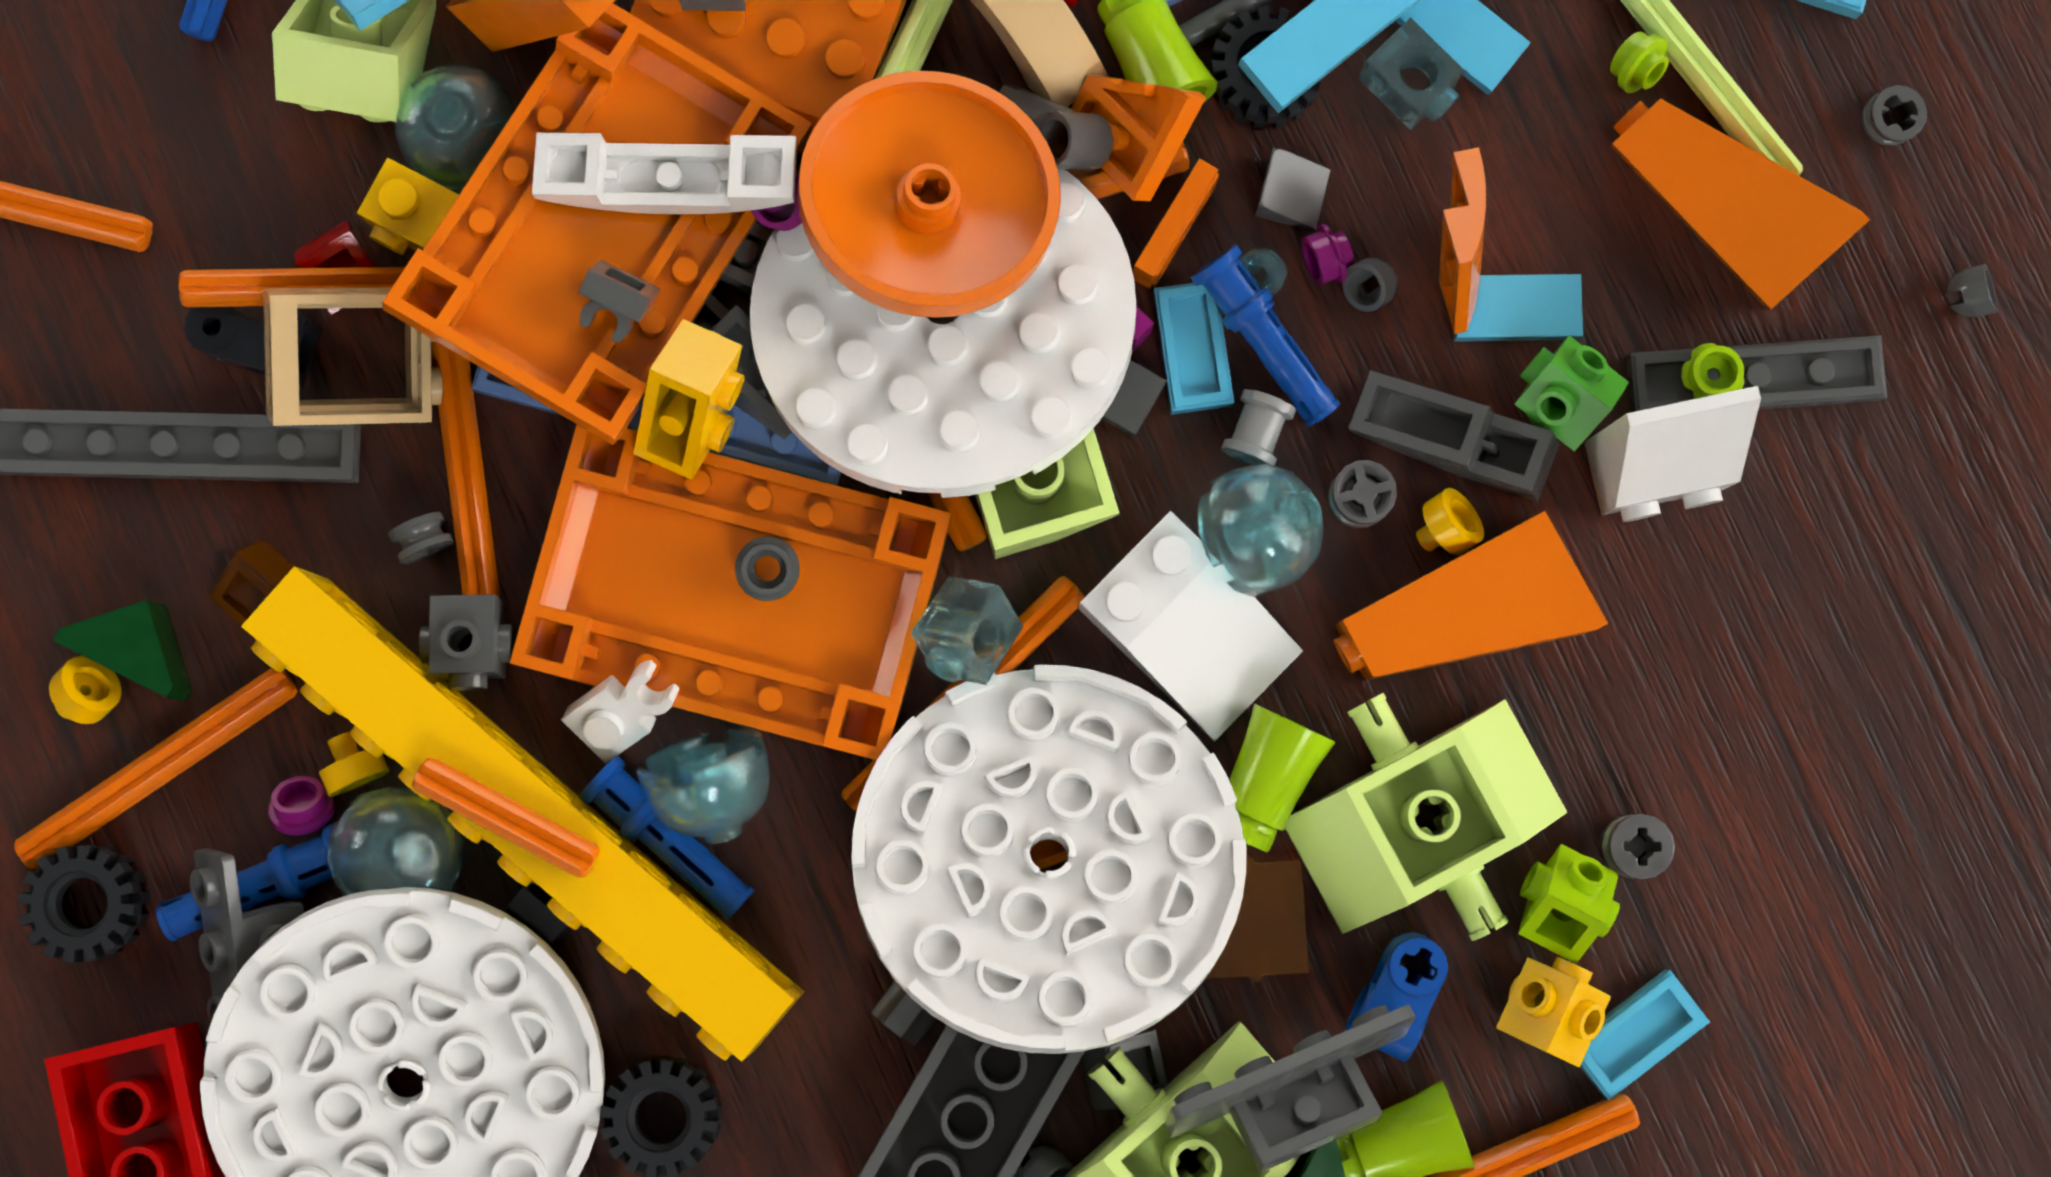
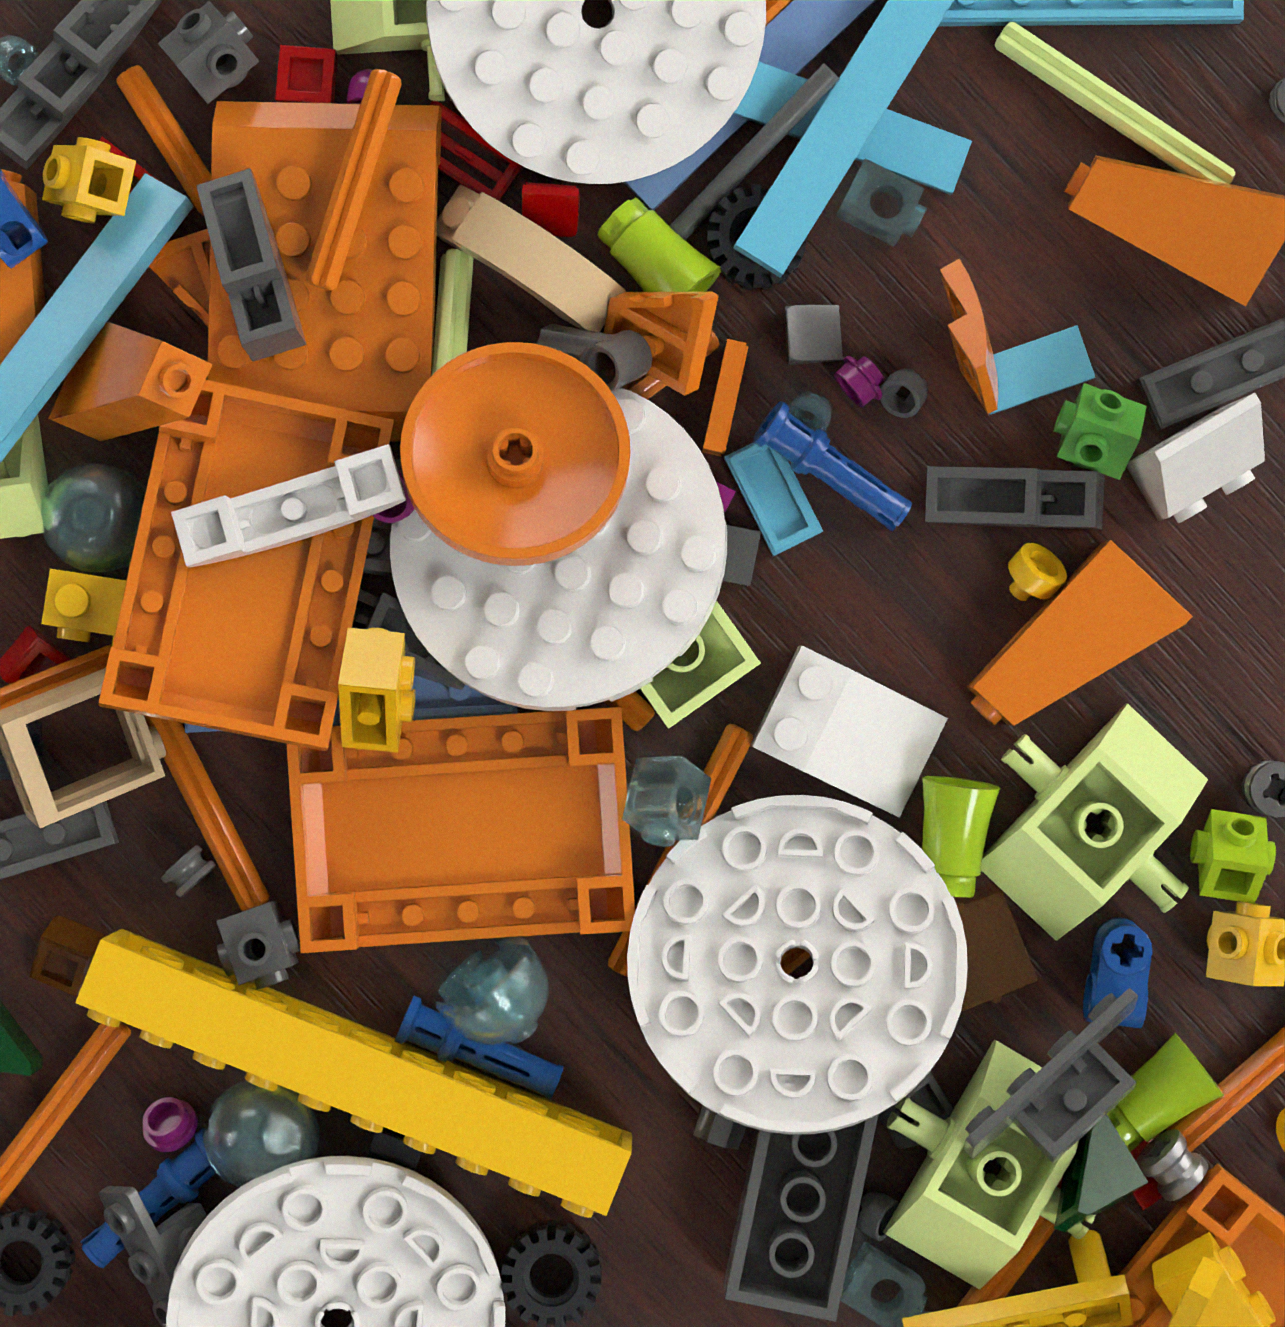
camera: 15 degrees left, 5 degrees up
(351, 766) = (199, 1079): yellow tile -> none
(506, 817) = (348, 1086): orange axle -> none
(618, 716) = (403, 965): white plate -> none
(620, 293) = (287, 625): dark grey tile -> none
(760, 588) = (489, 819): dark grey plate -> none
(1258, 428) = (850, 547): light grey bush -> none
(1261, 527) = (880, 633): clear light blue cylinder -> none
(1373, 490) = (967, 574): flat silver wheel -> none
(1640, 62) = (1069, 126): lime plate -> none
(1710, 356) = (1229, 375): lime plate -> none

